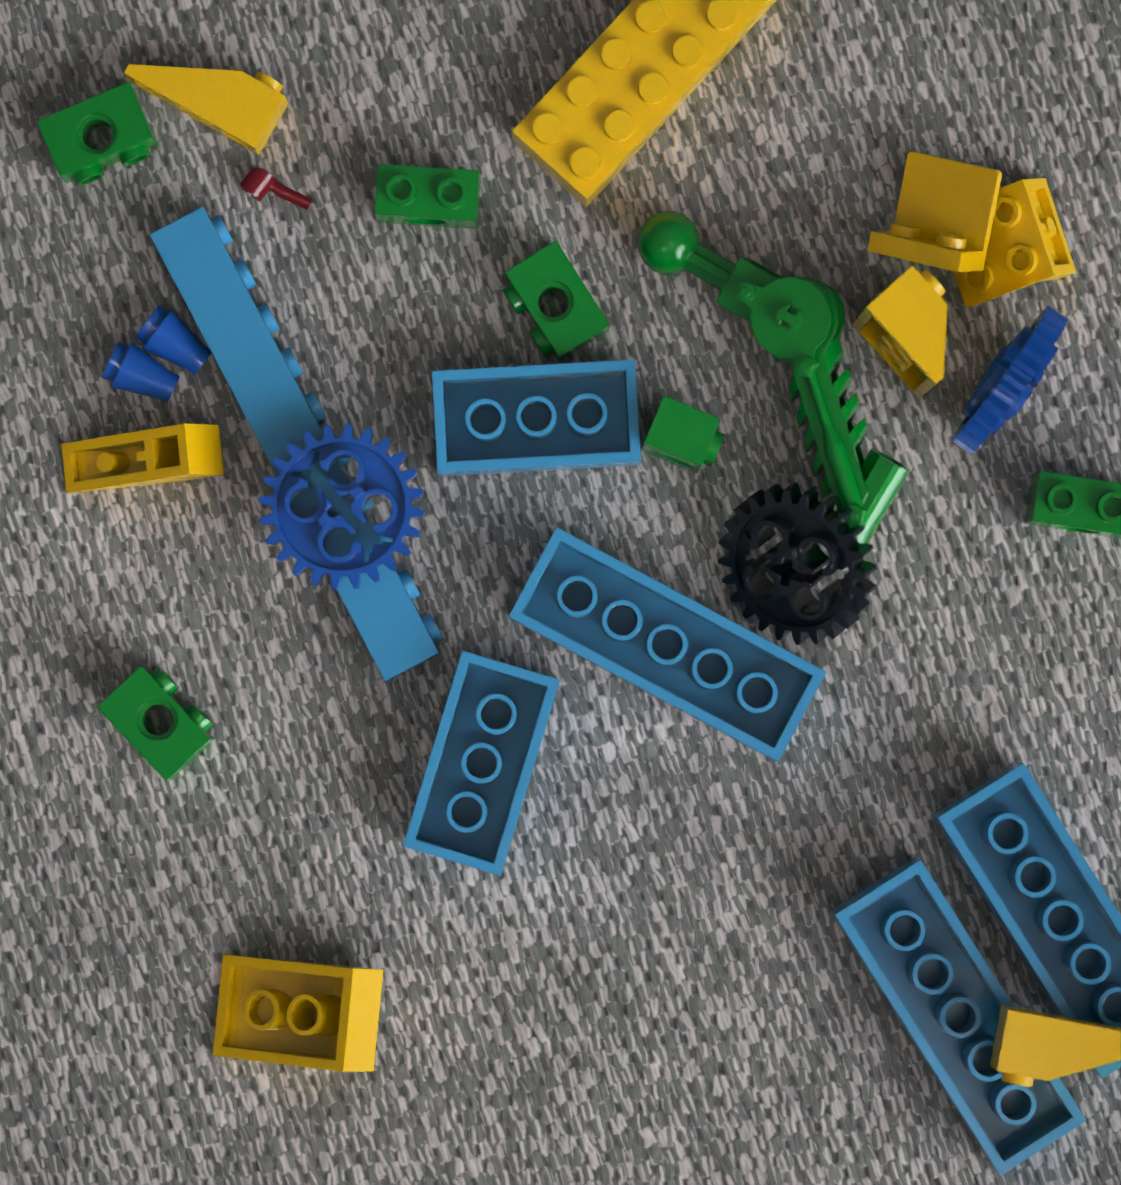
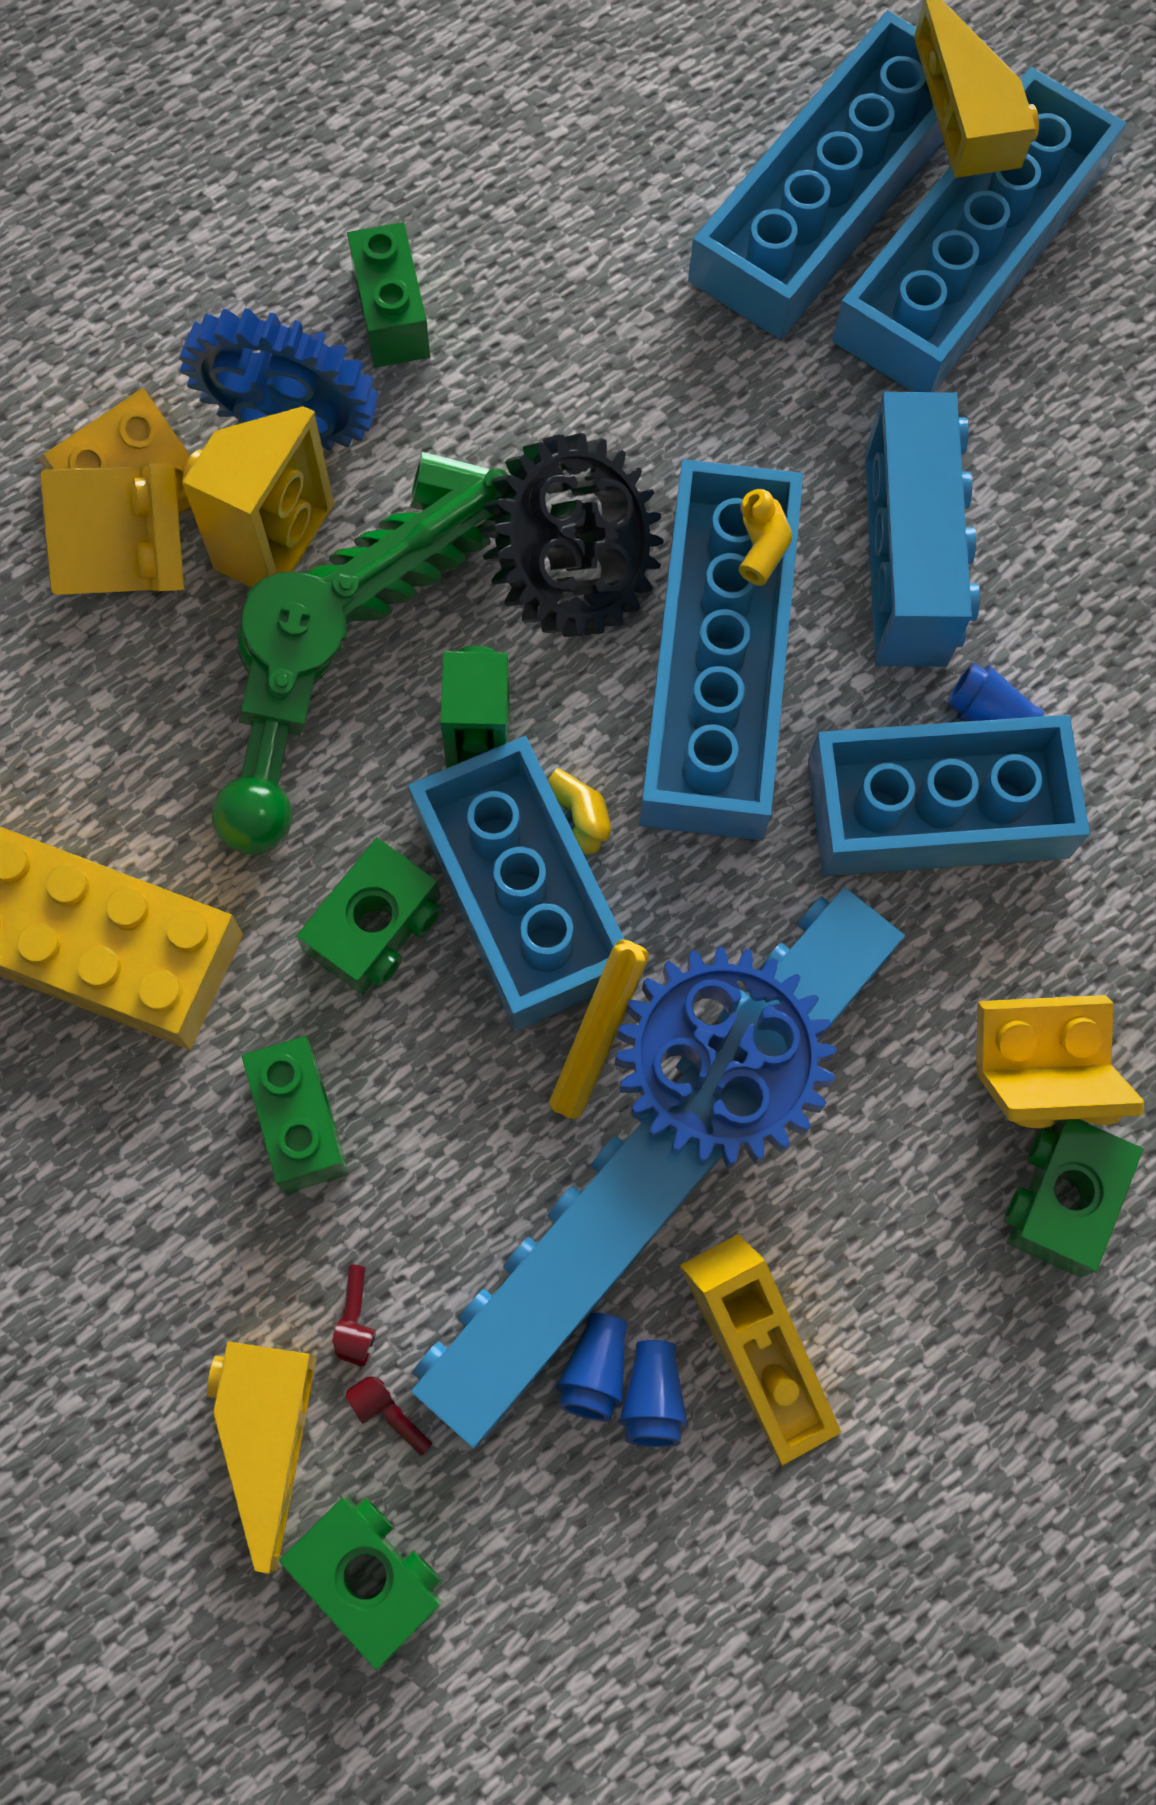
camera: 110 degrees left, 15 degrees down
(215, 180) = (371, 1398): none -> dark red hand
(251, 748) = (1052, 1061): none -> yellow bracket
(401, 430) = (598, 1028): none -> yellow axle
(547, 840) = (989, 696): none -> blue cone
(583, 496) = (587, 810): none -> yellow arm
(704, 836) = (919, 530): none -> dark azure brick
(730, 708) = (768, 534): none -> yellow arm

